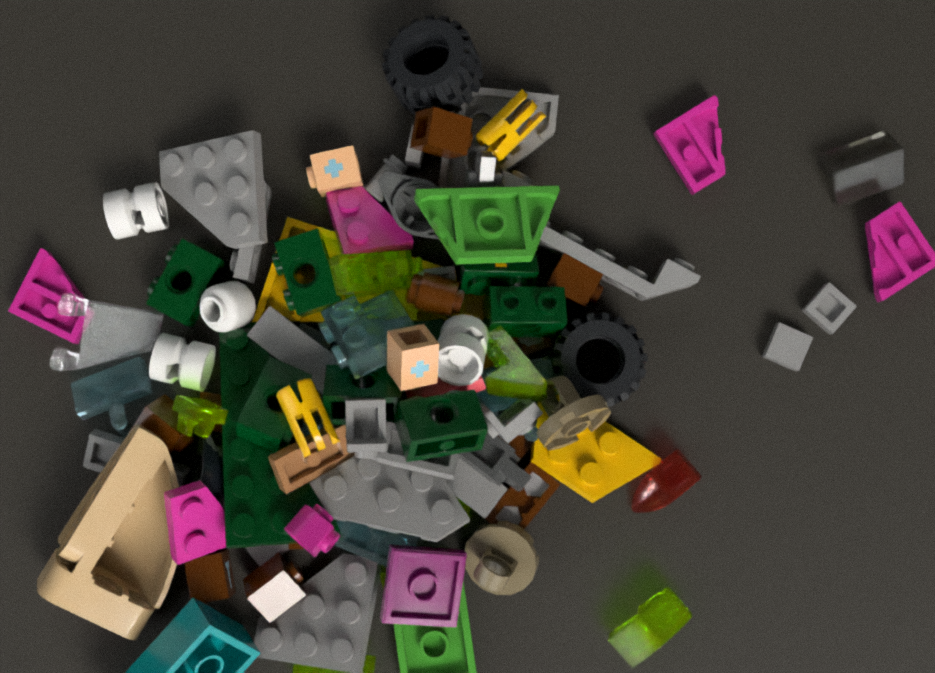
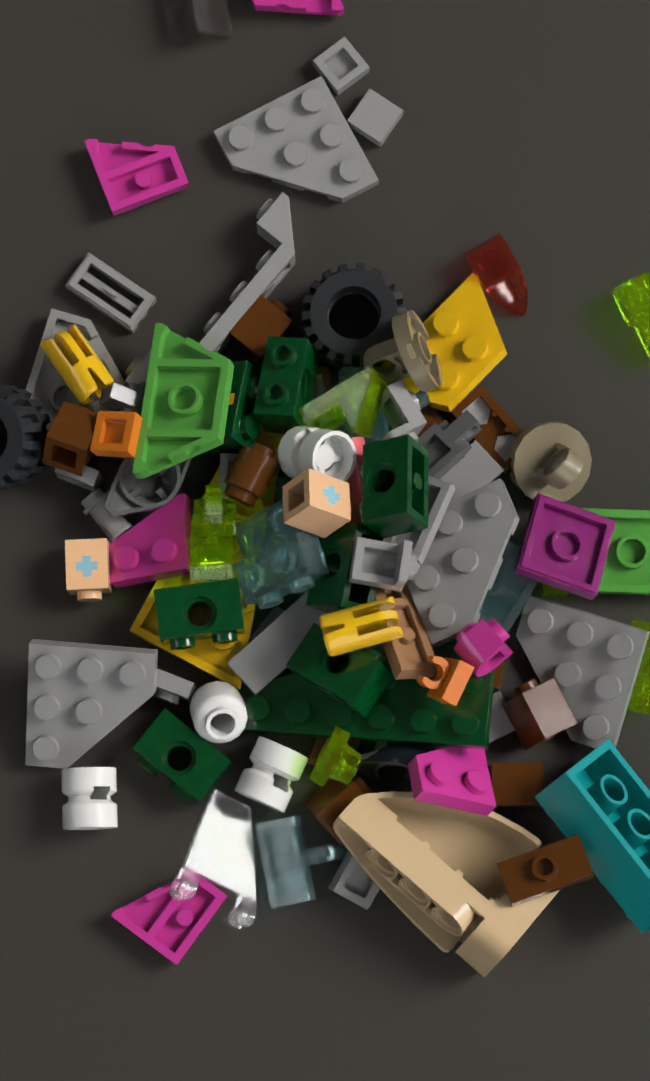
camera: 80 degrees left, 5 degrees down
(123, 619) = (545, 870): none -> reddish brown plate
(274, 505) = (449, 681): none -> orange tile
(448, 168) = (116, 434): none -> orange tile
(572, 173) = (138, 312): none -> light grey tile
(749, 285) = (300, 144): none -> light grey plate

